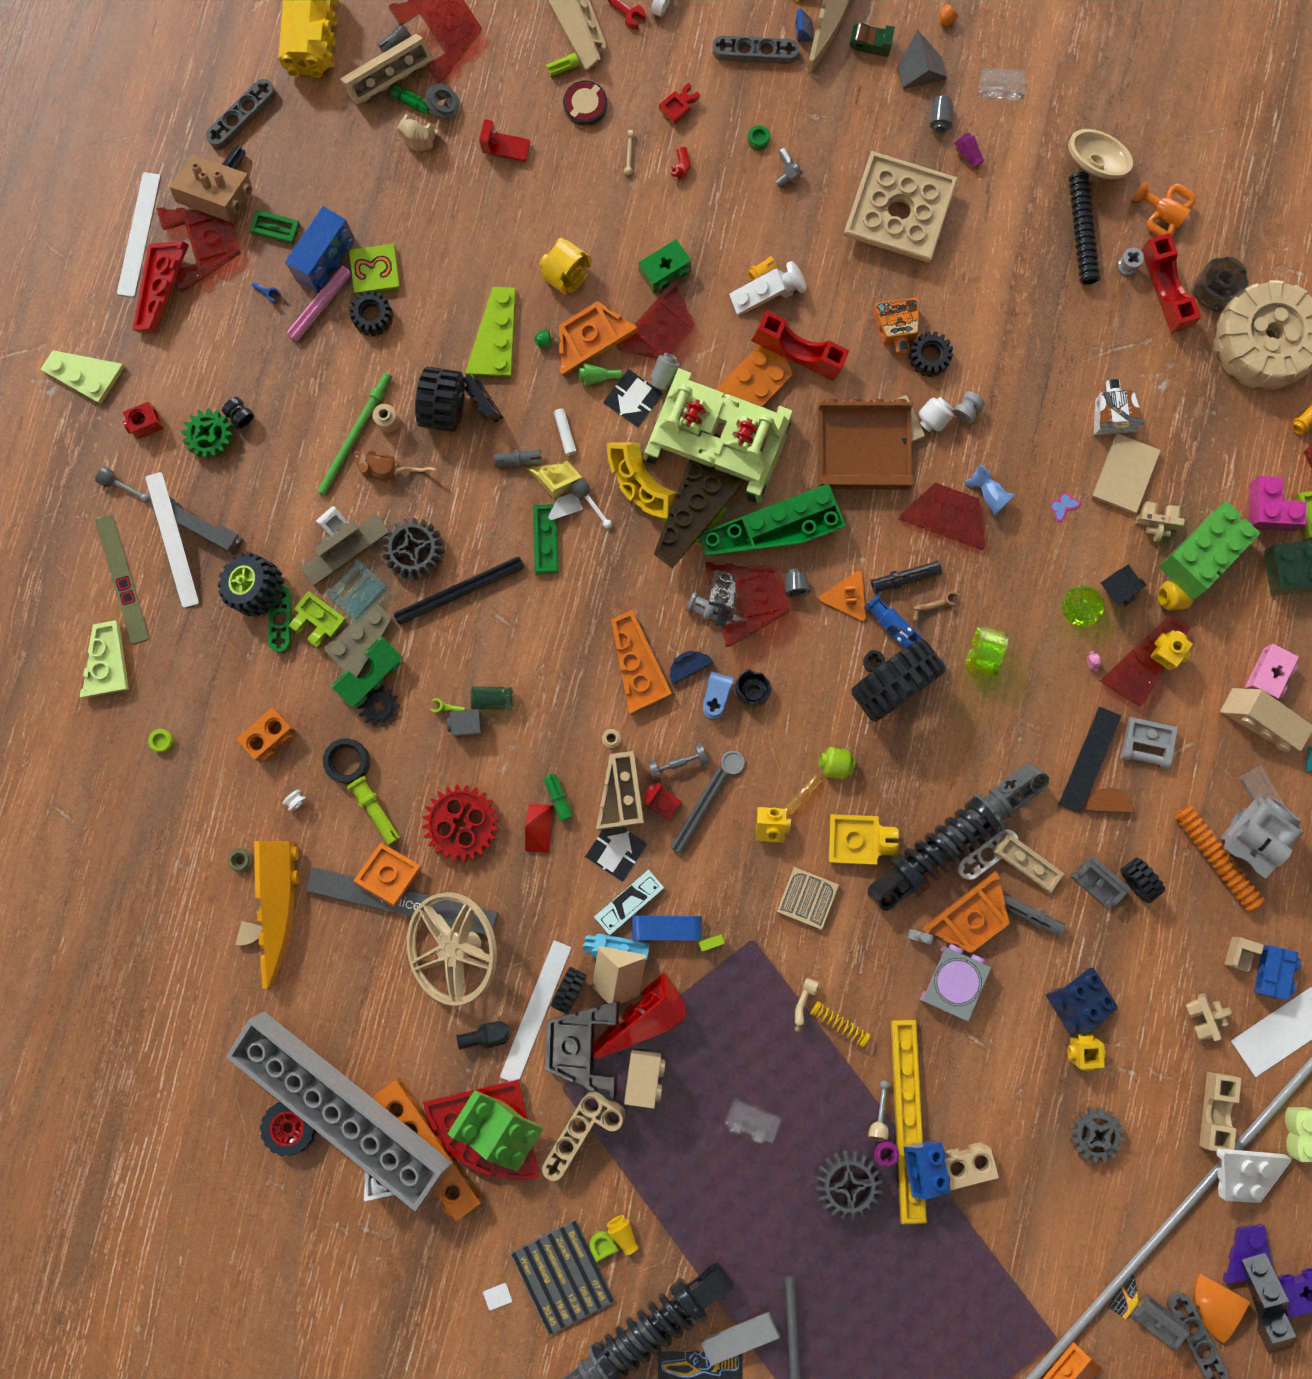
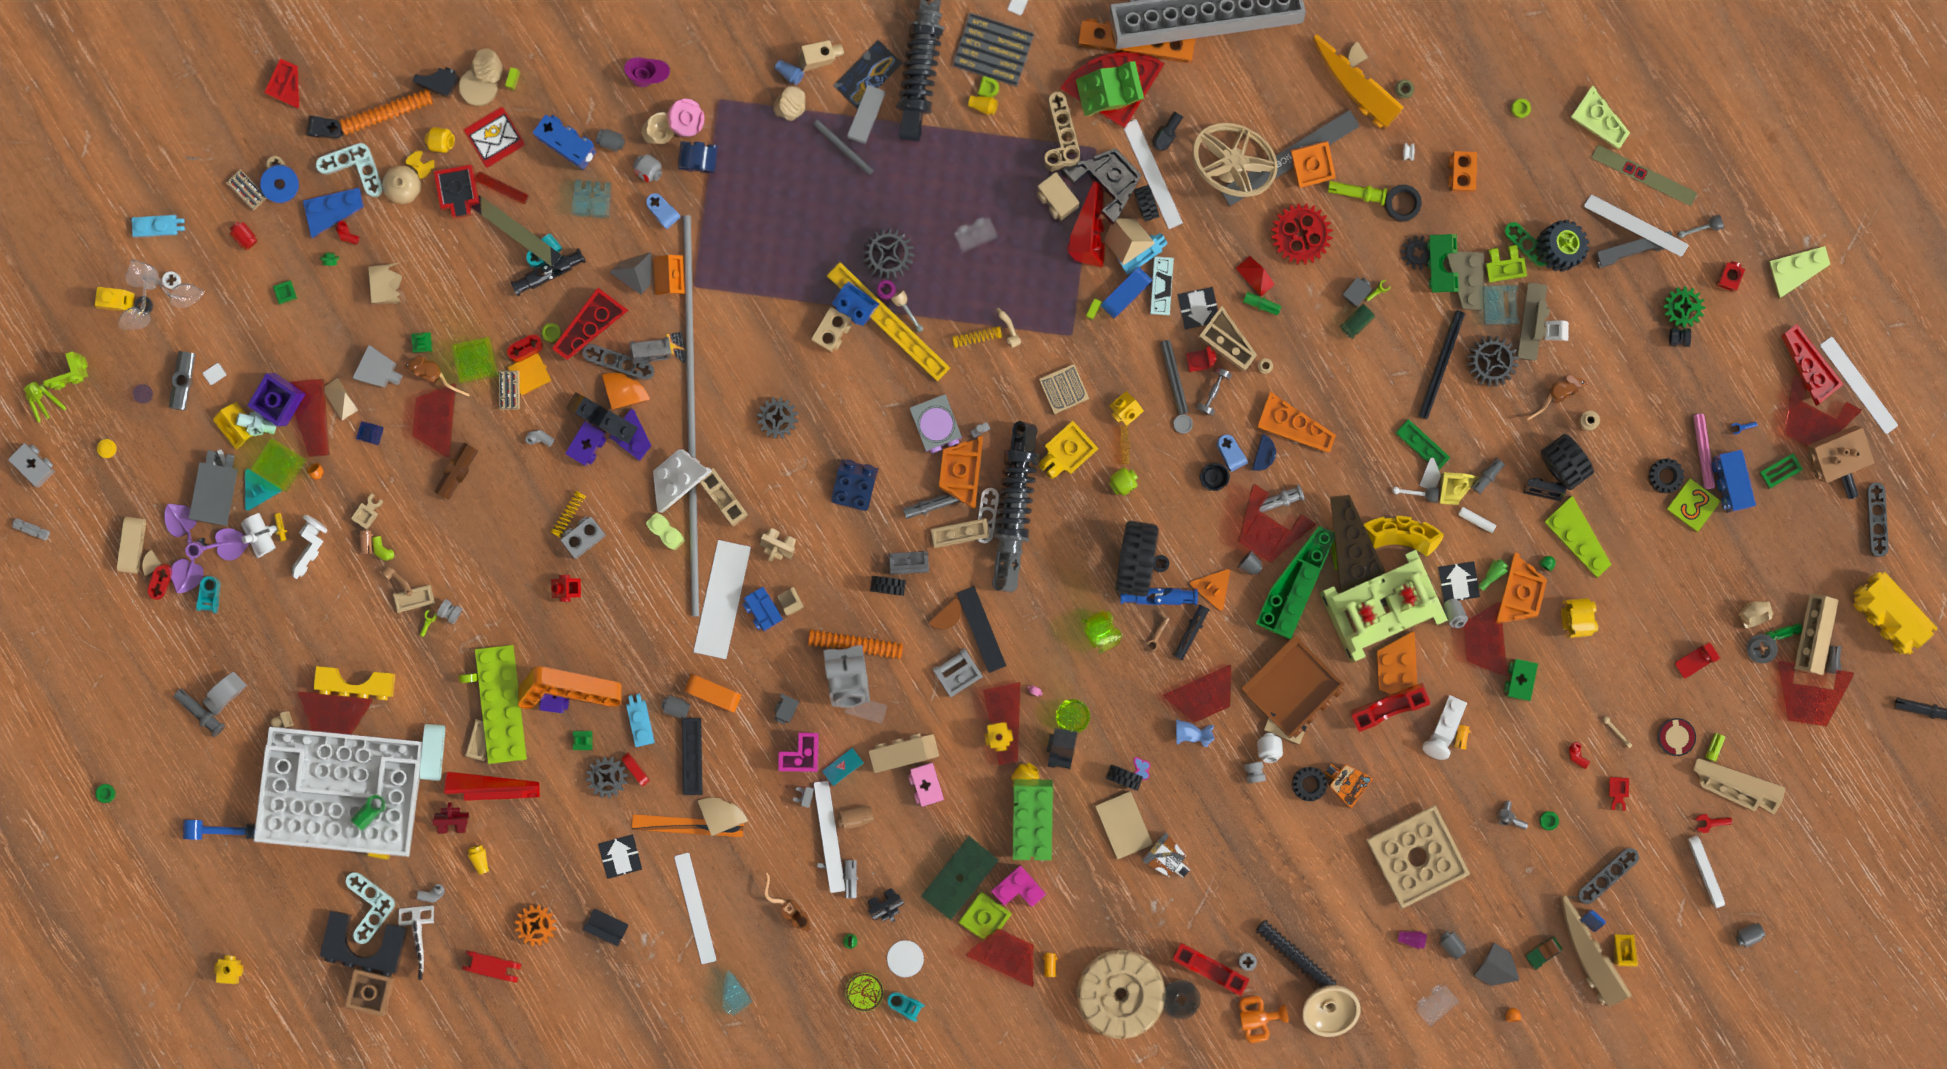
camera: 135 degrees right, 5 degrees up
(376, 395) = (1610, 430): bright green bar -> none
(723, 596) = (1286, 510): clear smoke bracket -> none
(1090, 509) = (1124, 777): none -> black tyre
(1092, 1057) = (821, 454): yellow brick -> none
(1159, 524) = (1071, 821): tan hips -> none

